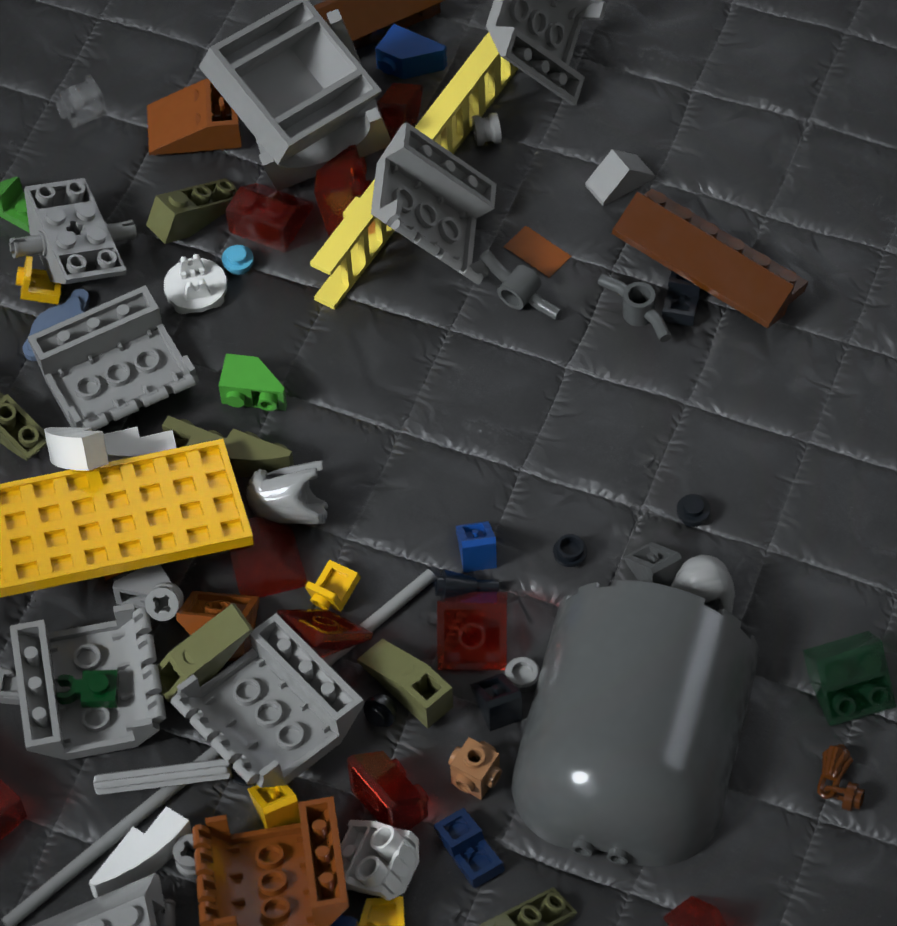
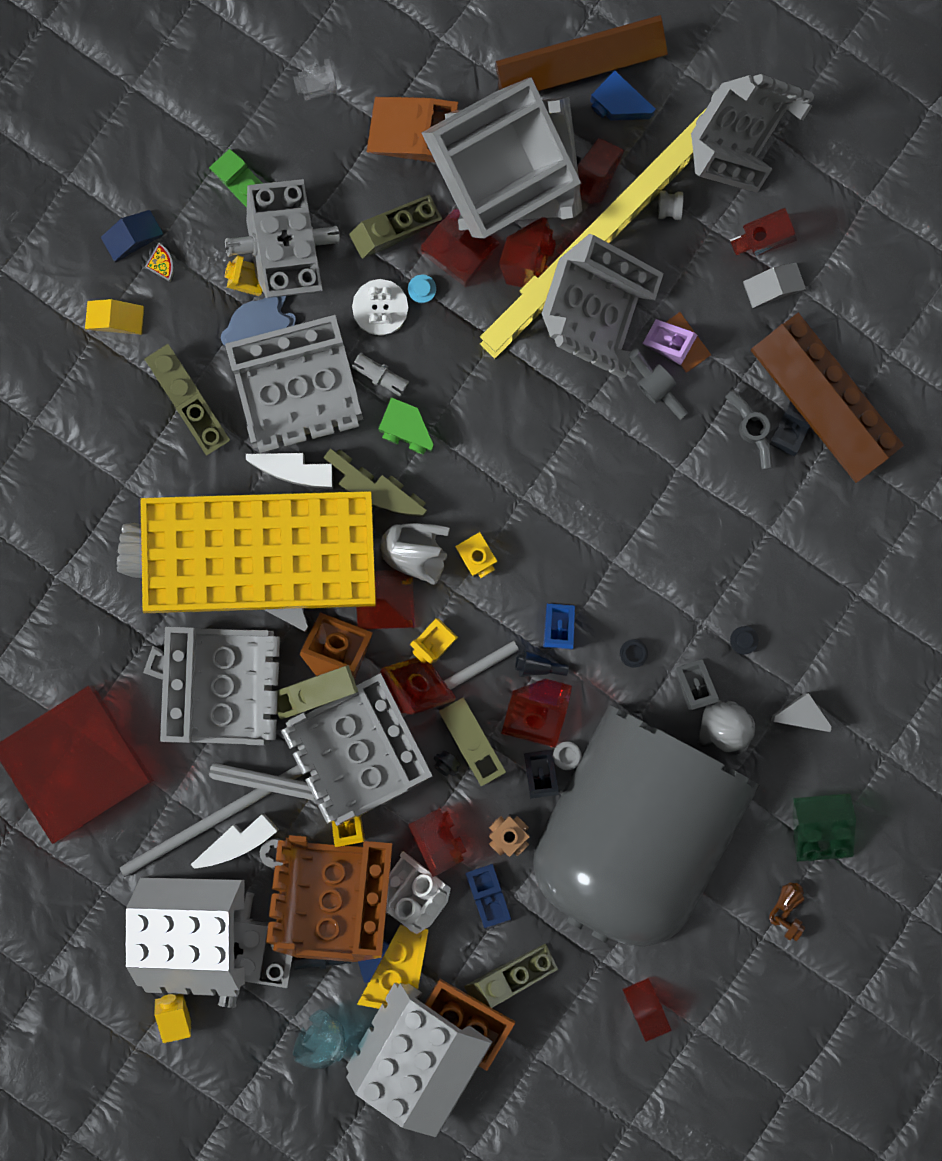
camera: 10 degrees right, 30 degrees up
(76, 448) = (246, 474): white slope -> none
(94, 690) = (225, 693): dark green plate -> none
(168, 595) = (293, 634): light grey wheel -> none
(207, 344) = (380, 374): none -> light grey pin
(360, 489) = (477, 555): none -> yellow brick
(525, 246) = (670, 341): none -> lavender slope
(597, 126) = (778, 231): none -> clear red torso
(786, 566) = (802, 713): none -> light grey slope

